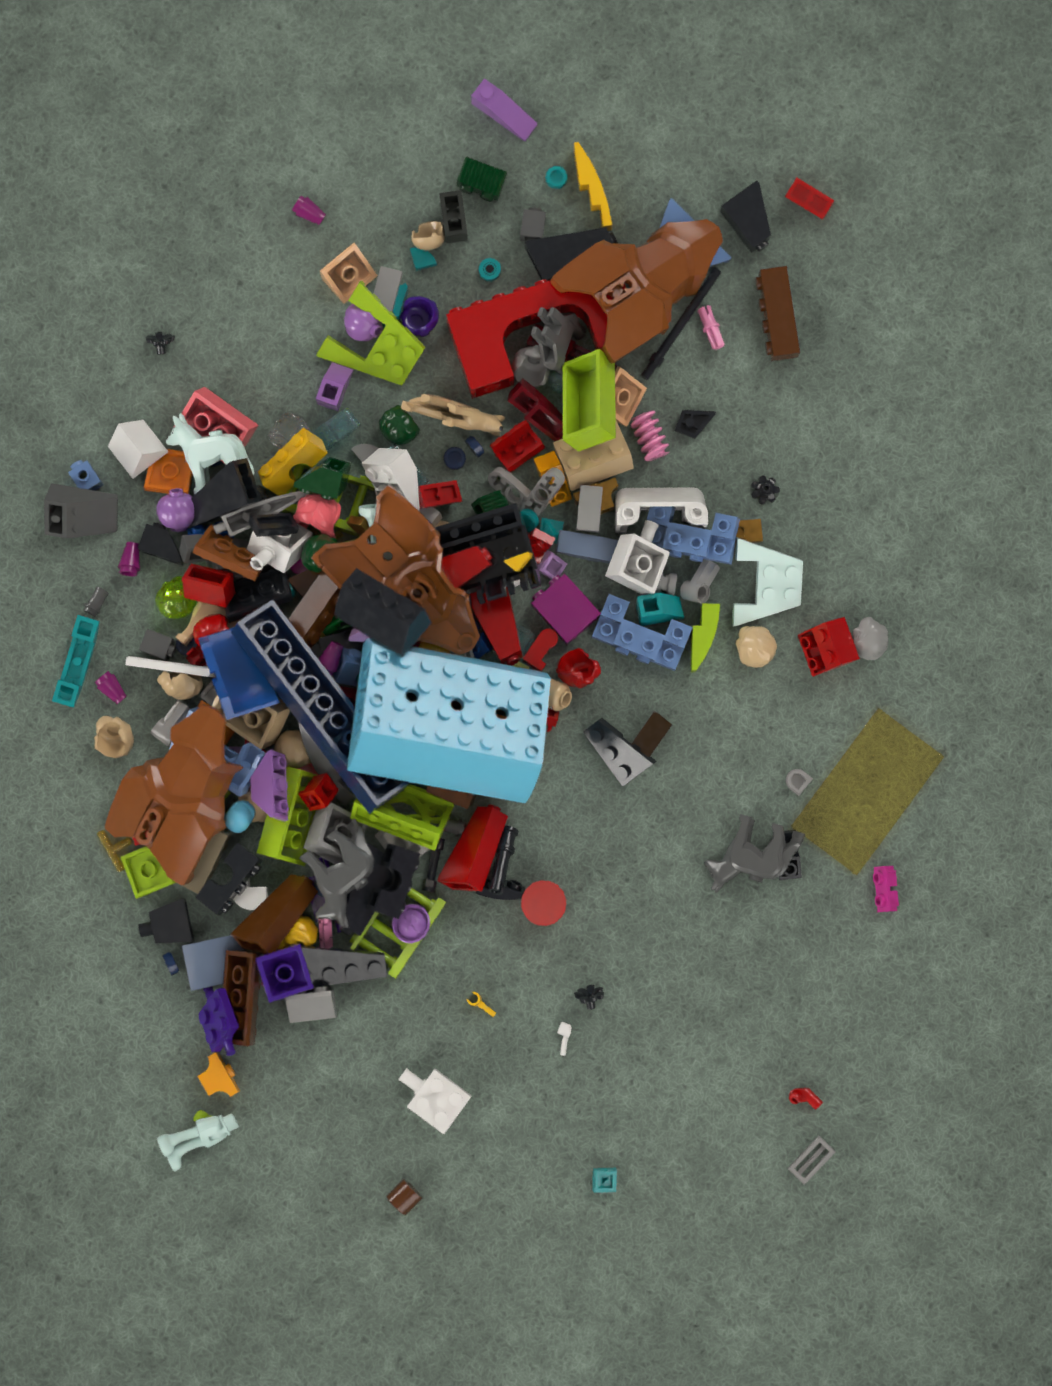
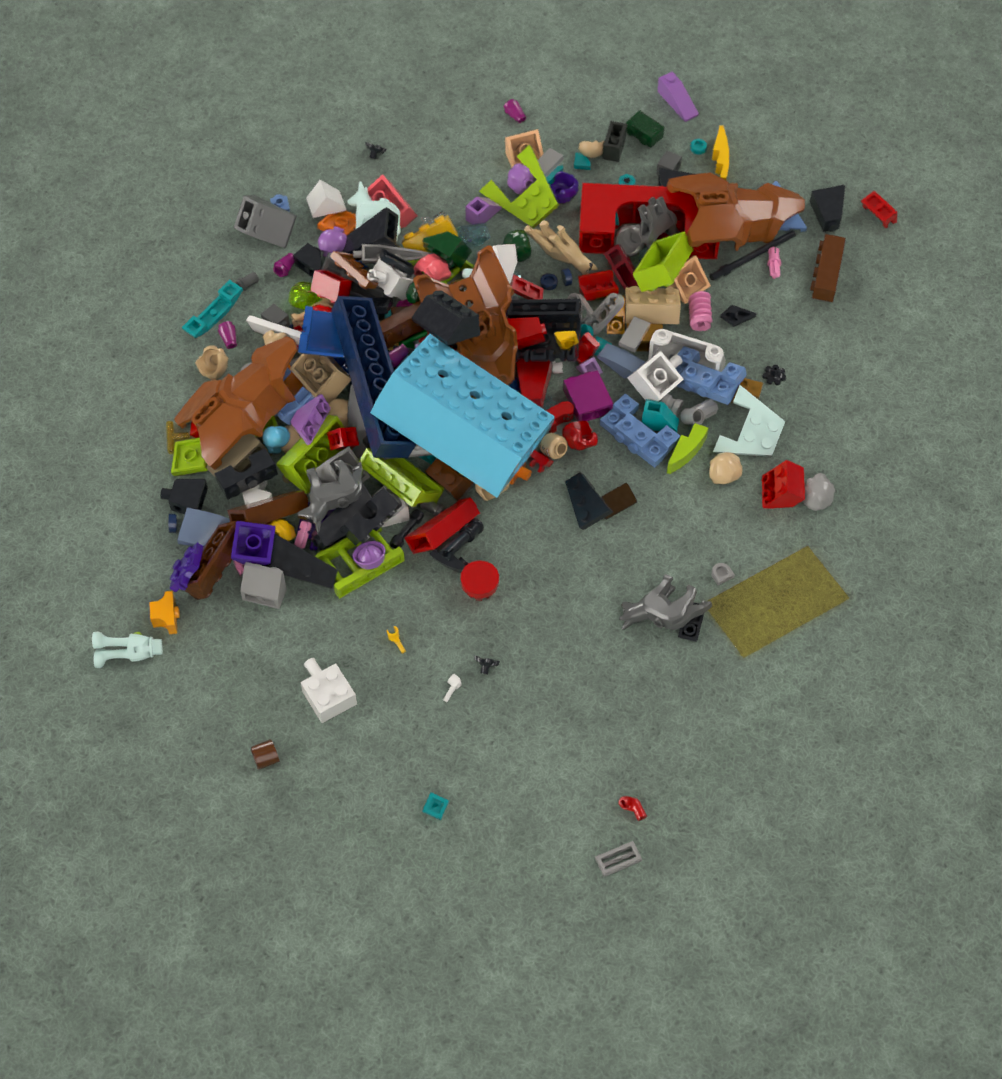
camera: 25 degrees right, 25 degrees down
(885, 899) = (765, 666): dark pink hinge -> none

